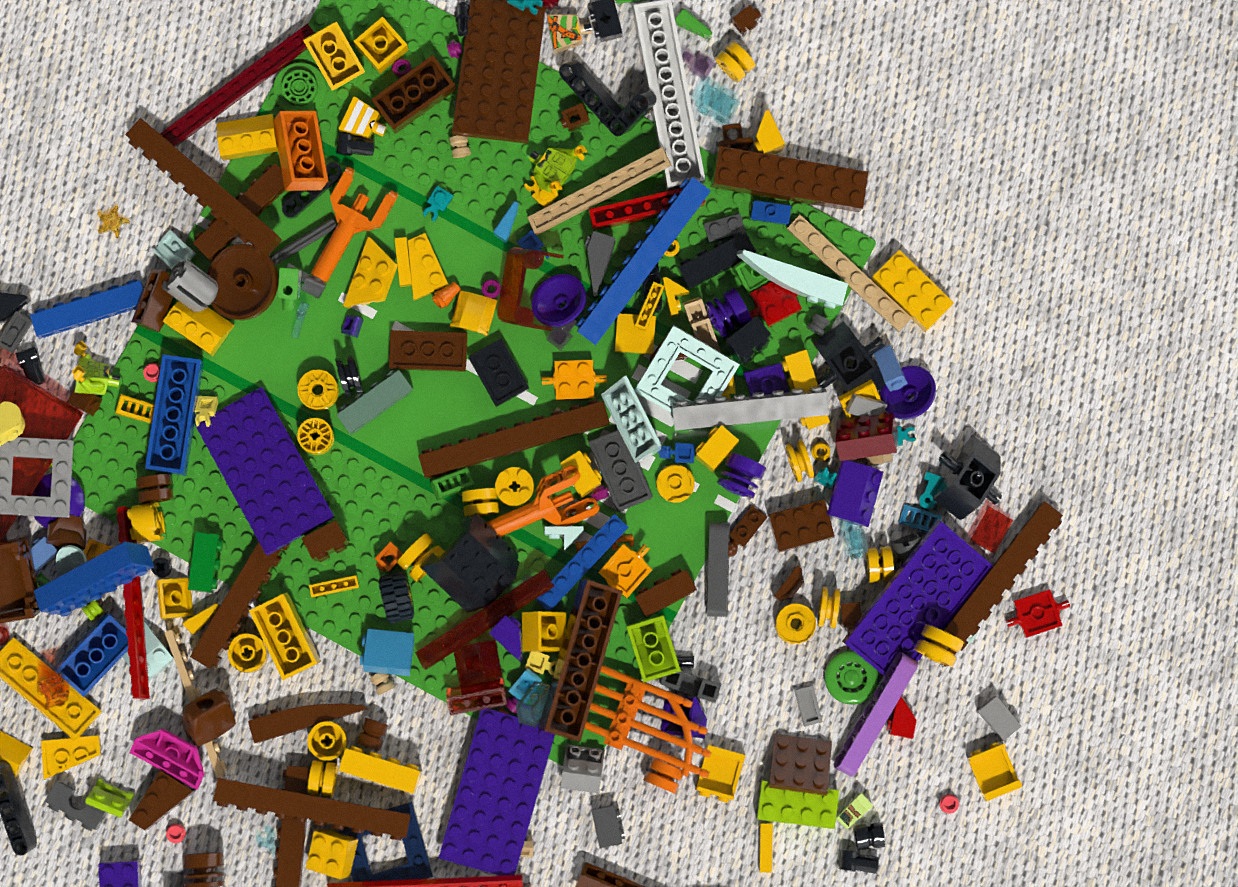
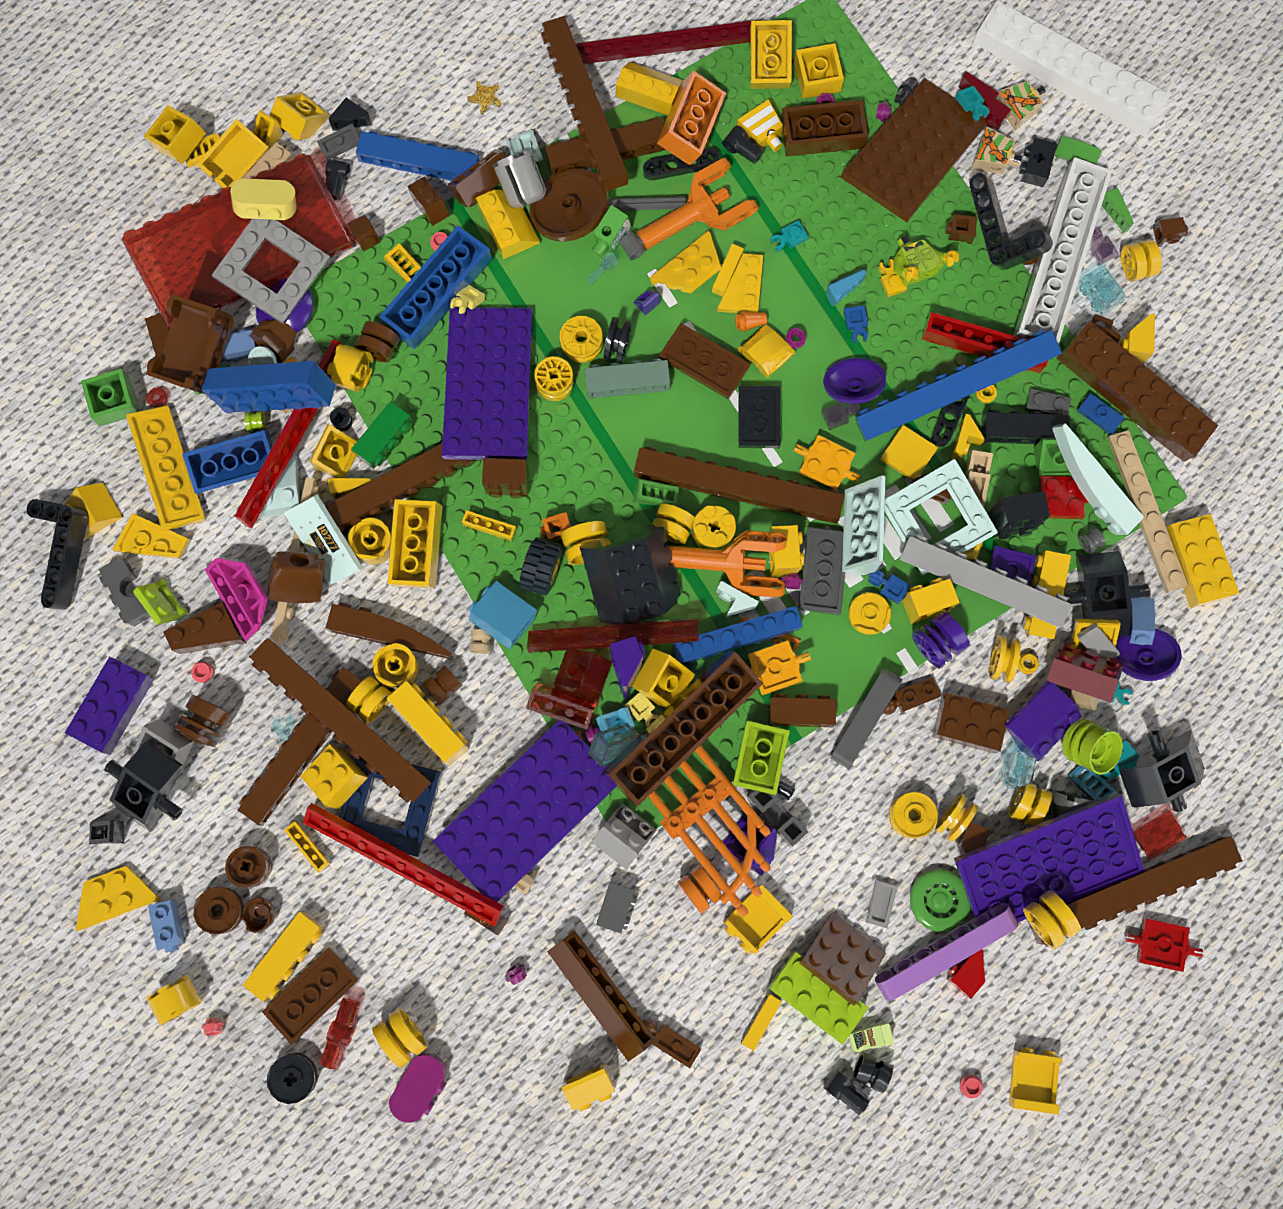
camera: 30 degrees right, 5 degrees down
(55, 685) = (170, 462): clear orange piece -> none
(90, 375) = (382, 211): lime torso -> none
(122, 343) = (428, 201): none -> reddish brown brick
(210, 673) = (323, 537): none -> light aqua tile
(299, 87) = (724, 65): bright green wheel -> none
(459, 146) = (840, 196): tan wheel -> none
(512, 286) = (803, 364): clear red windscreen -> none
(599, 191) = (950, 302): tan plate -> none
(599, 253) = (919, 357): dark grey slope -> none
(649, 306) = (938, 433): yellow piece -> none
(728, 313) = (1011, 479): dark purple wheel -> none
(791, 585) = (929, 775): reddish brown slope -> none
(826, 478) = (1020, 690): teal plate -> none
(902, 492) = (1092, 746): none -> lime wheel
(1000, 718) = (1070, 1029): light grey brick -> none

